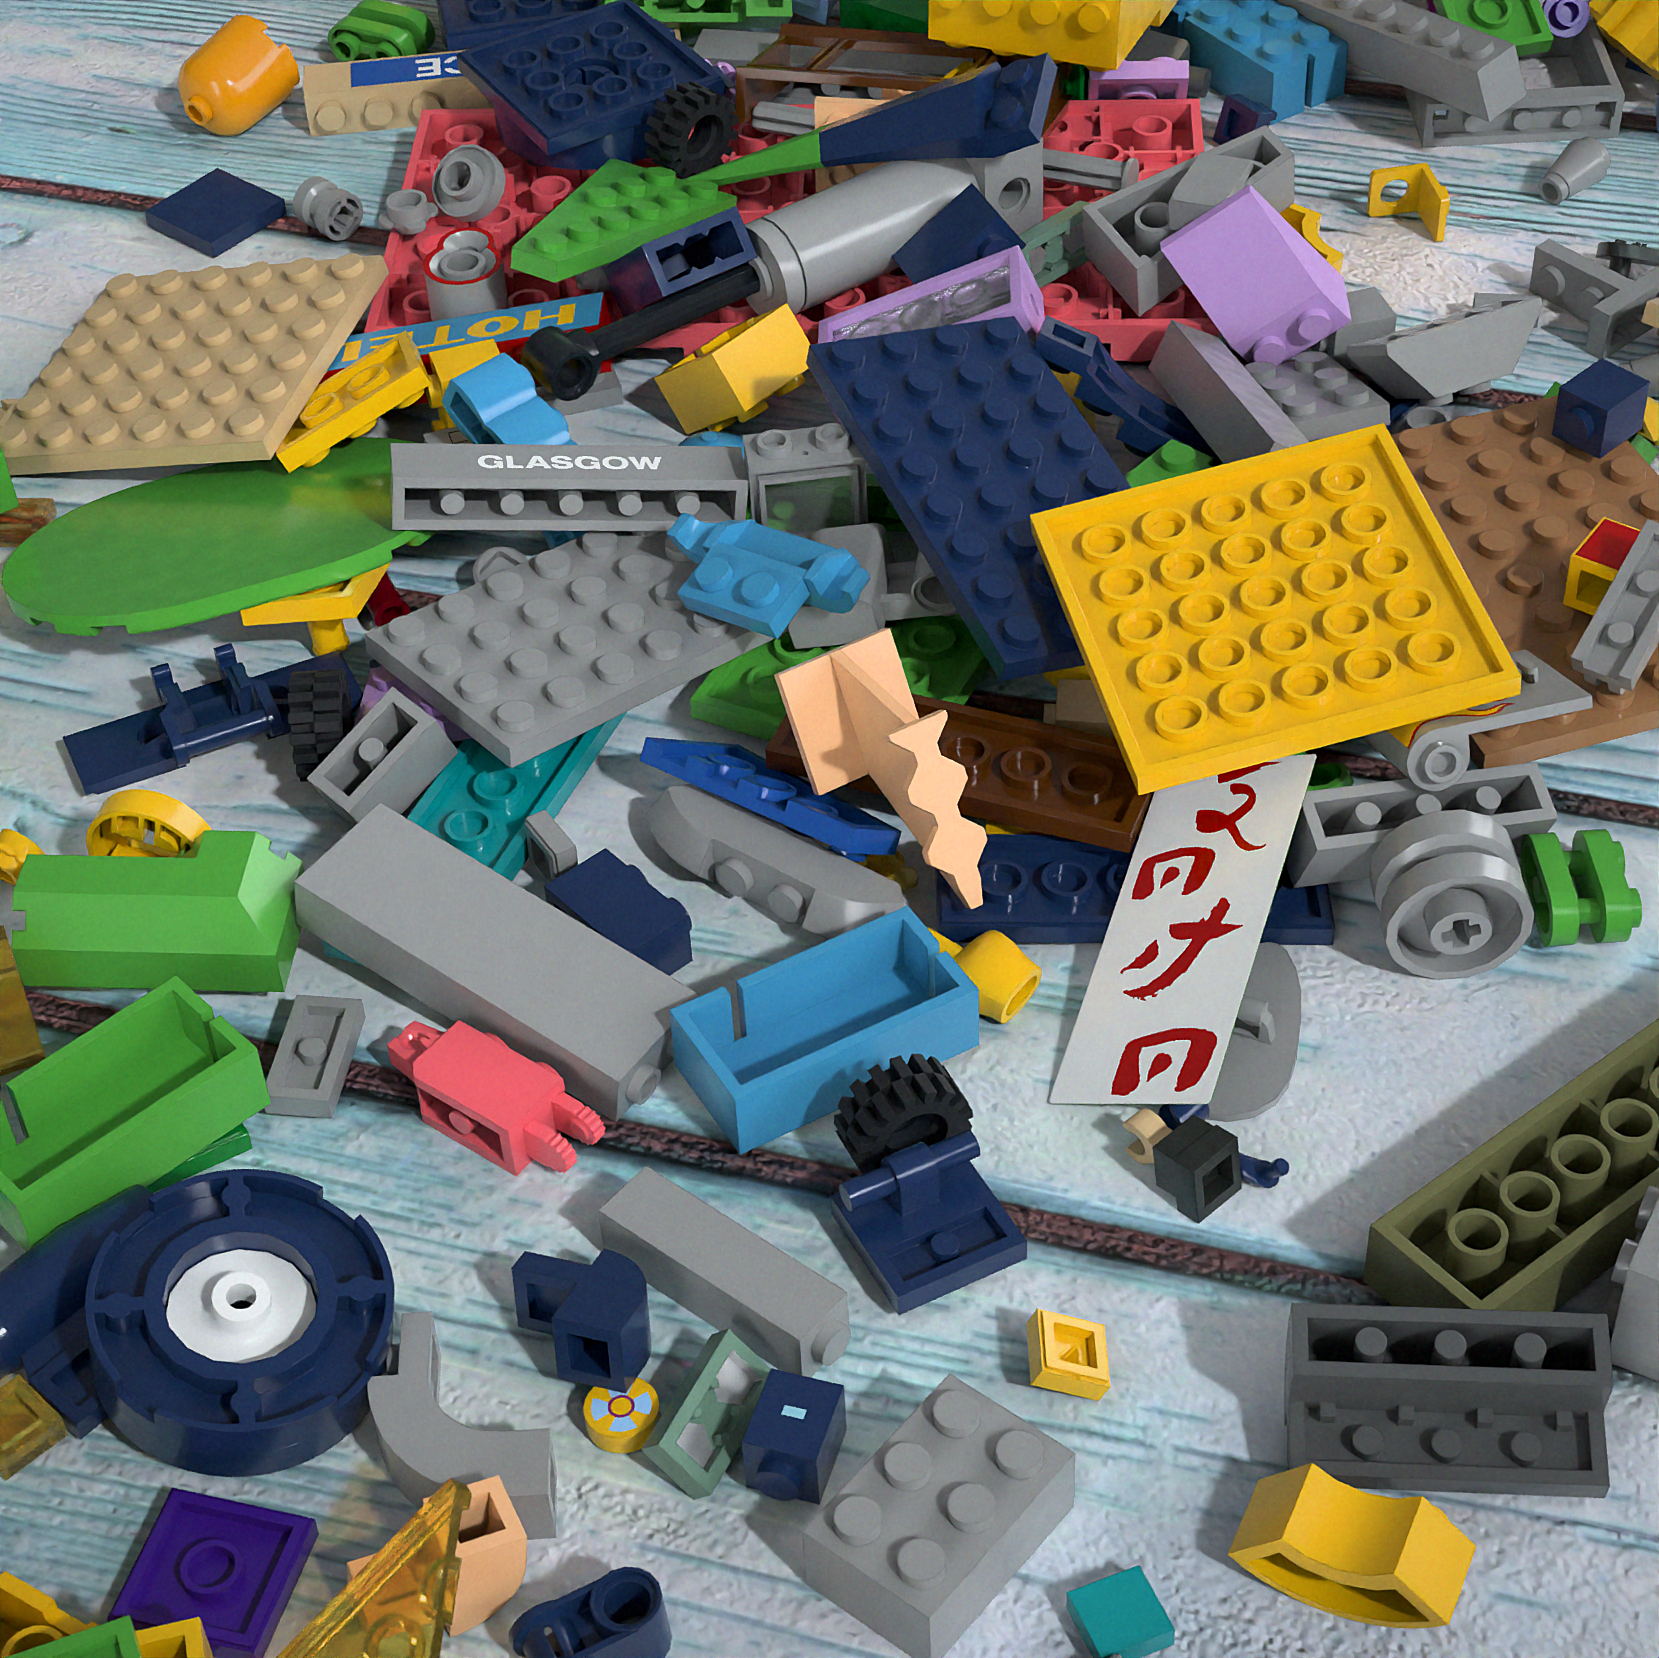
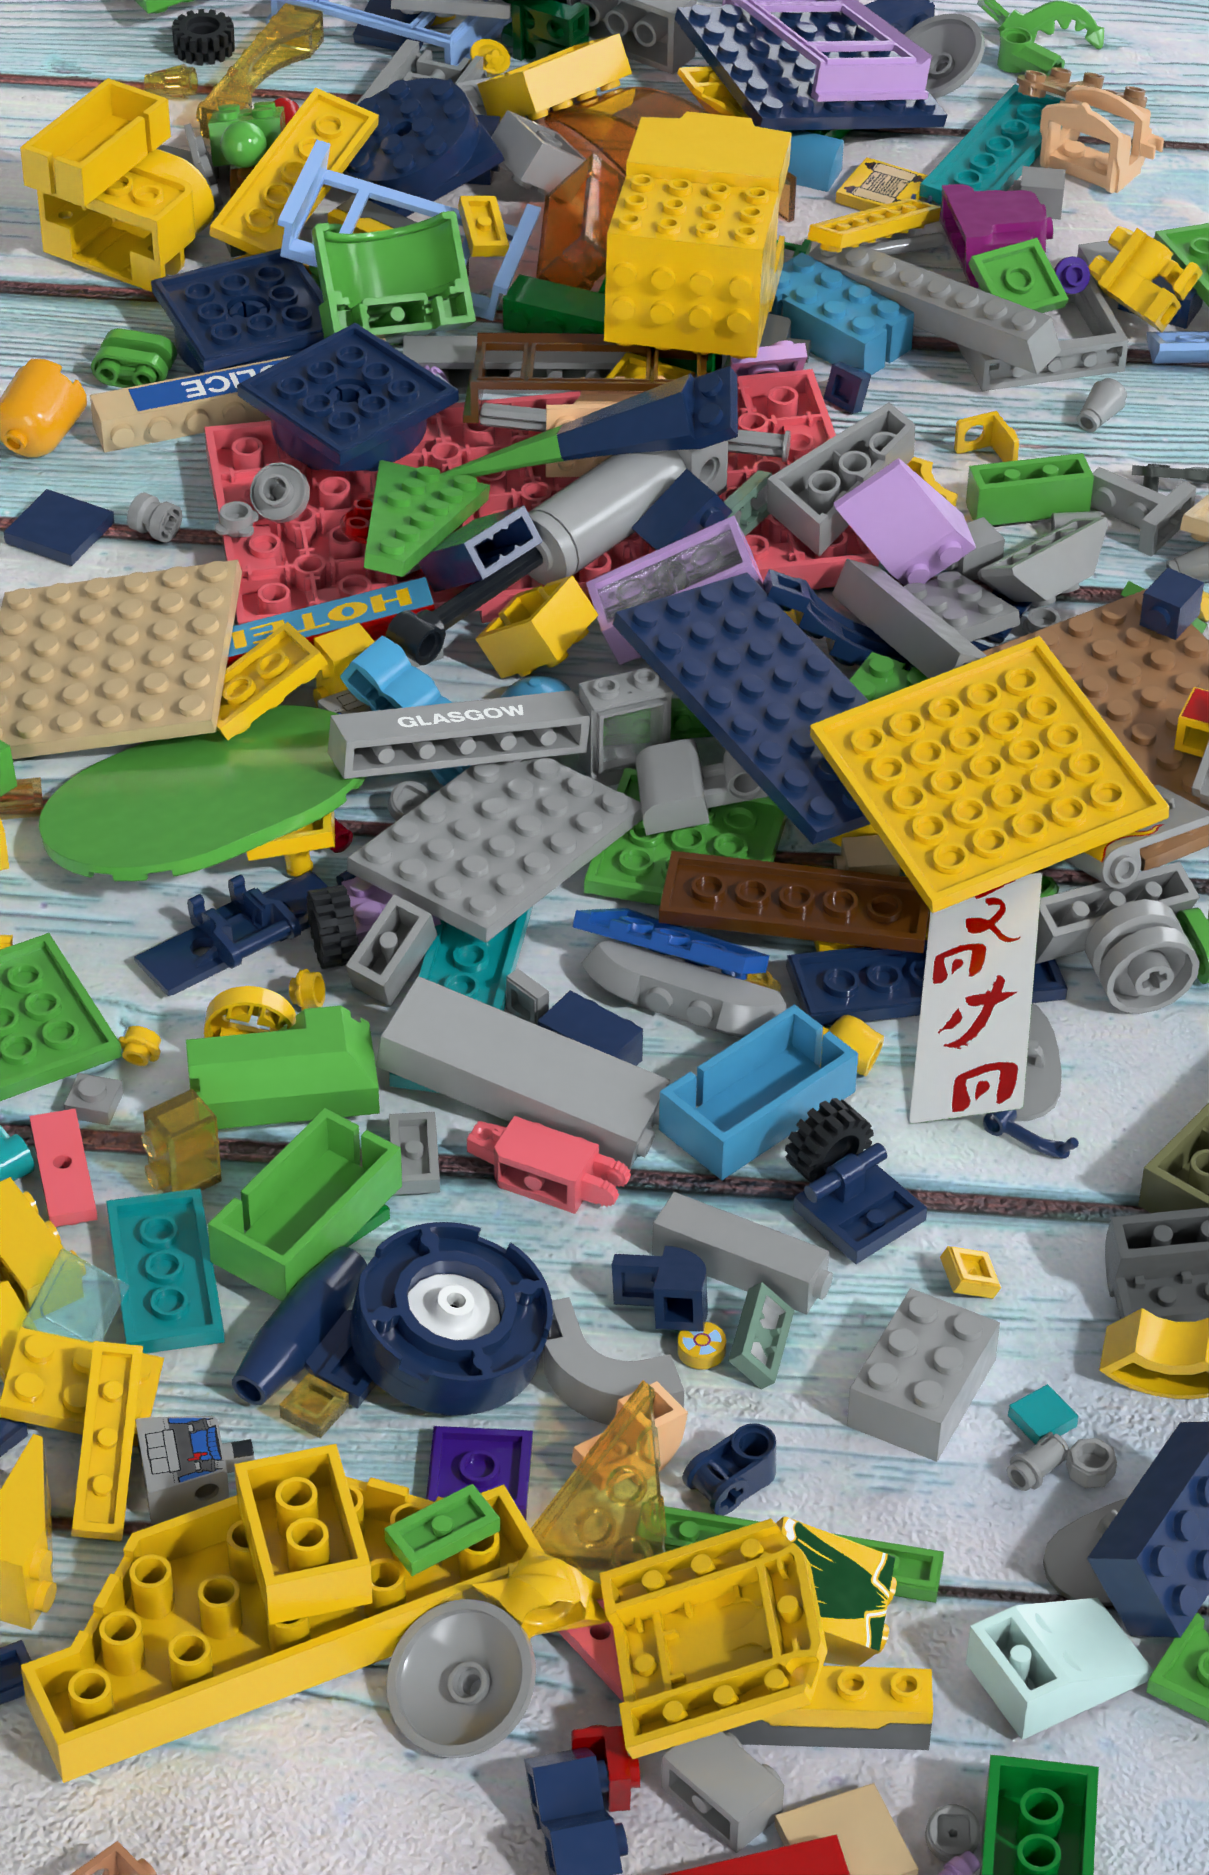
camera: 15 degrees left, 0 degrees up
(267, 806) = (307, 989): none -> yellow plate
(465, 275) = (311, 572): light grey piece -> none
(674, 122) = (442, 434): black tyre -> none
(762, 574) = (622, 784): dark azure plate -> none
(794, 1437) = (818, 1341): dark blue brick -> none
(860, 720) = (731, 884): light nougat piece -> none
(1191, 1162) = (1016, 1147): pearl dark grey piece -> none
(1205, 185) = (860, 458): light grey slope -> none
(1448, 259) = (1029, 489): none -> bright green brick

